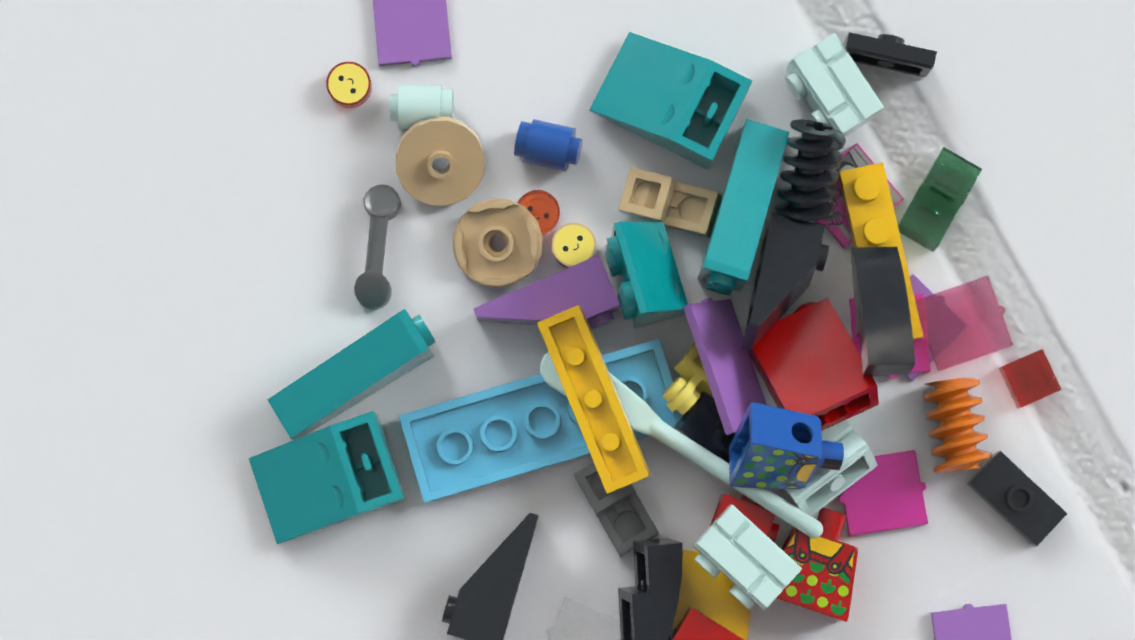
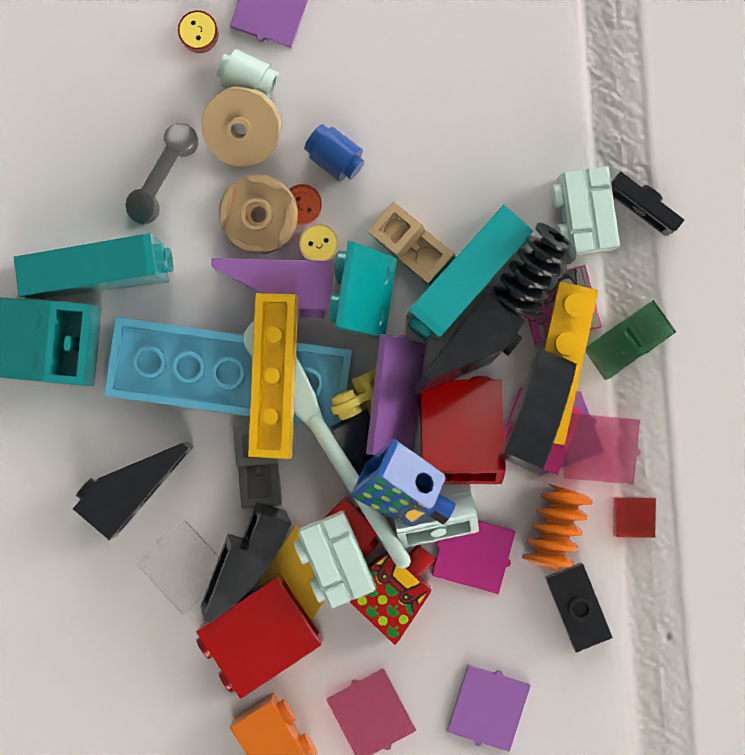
camera: 25 degrees right, 5 degrees up
(671, 98) = (452, 160): teal slope -> none

